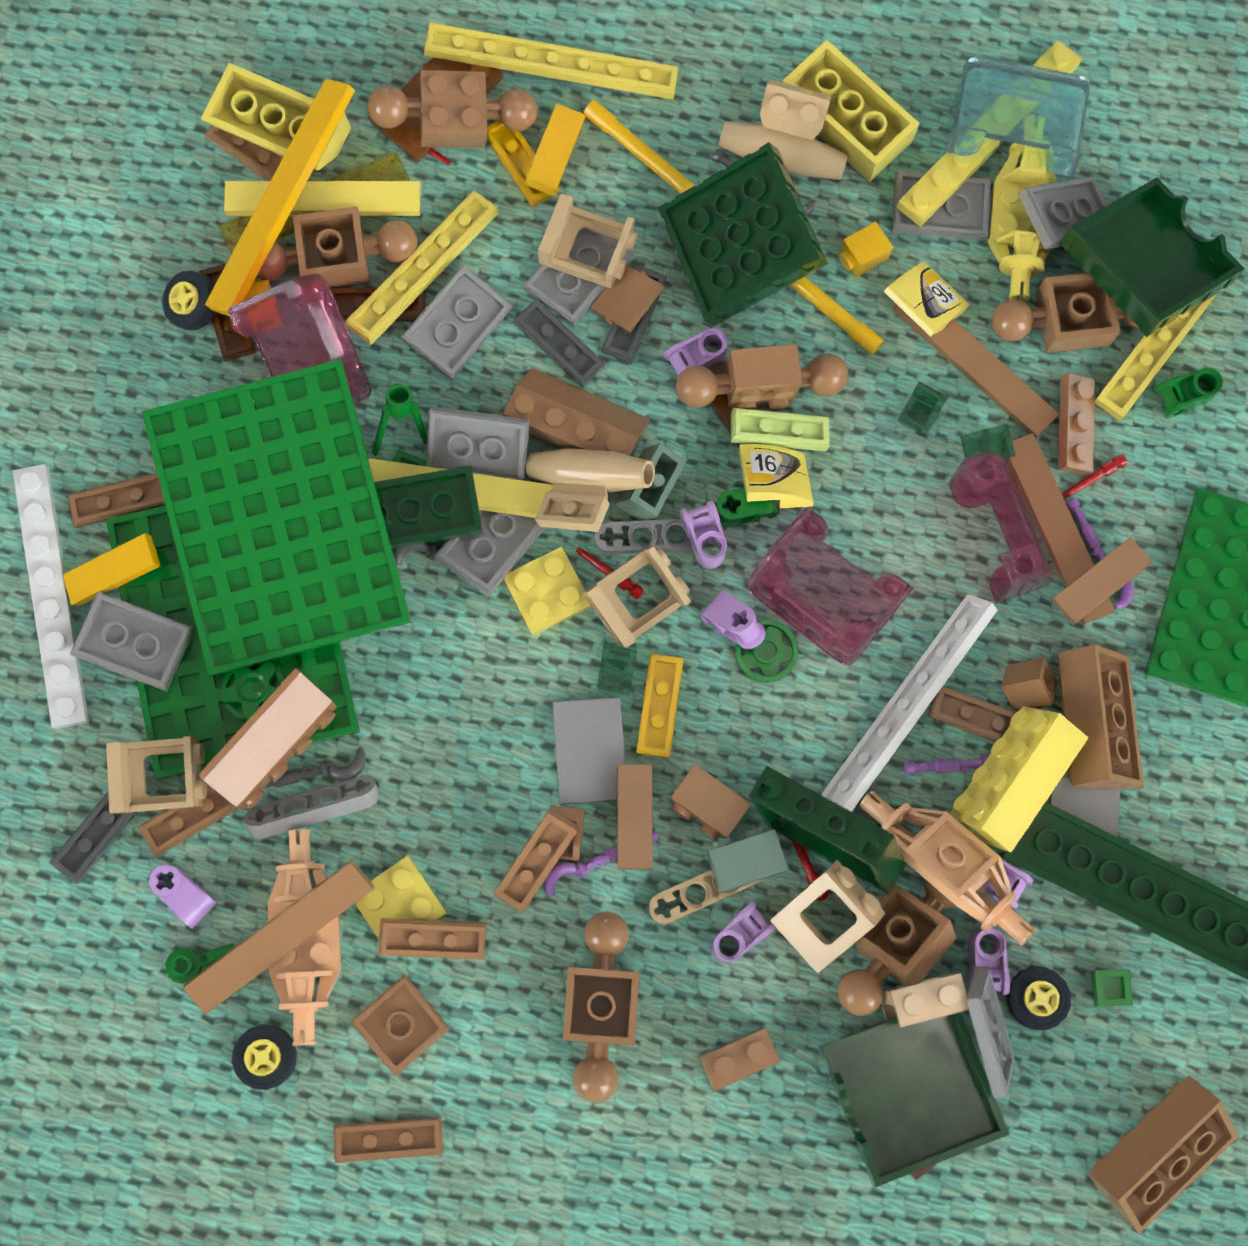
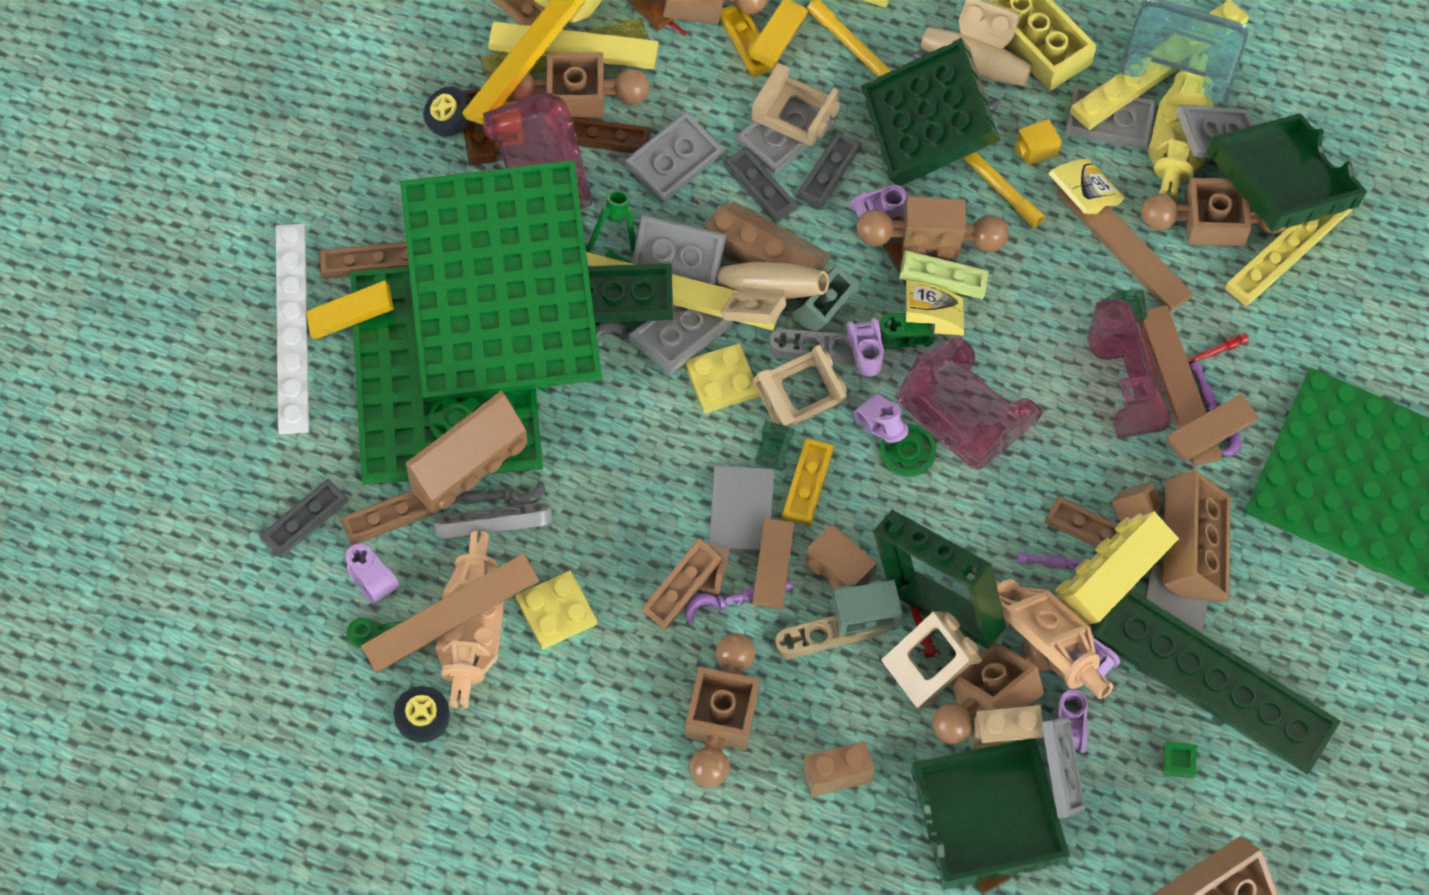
camera: 10 degrees right, 15 degrees down
(128, 775) = (340, 473): tan window -> none
(132, 641) = (359, 368): light grey tile -> none
(388, 1139) = (519, 797): medium nougat tile -> none
(400, 1025) = (543, 707): medium nougat tile -> none
(421, 267) = (650, 110): light yellow tile -> none
(432, 938) = (582, 637): medium nougat tile -> none
(627, 298) = (824, 155): medium nougat piece -> none
(634, 589) = (791, 381): red piece -> none
(742, 932) = (858, 668): lavender piece -> none
(909, 702) = (1034, 499): white plate -> none
(922, 408) = (1072, 272): clear green panel -> none
(1050, 992) = (1115, 748): black wheel -> none
(1076, 424) = (1207, 303): medium nougat plate -> none
(1183, 393) = (1304, 289): green piece -> none

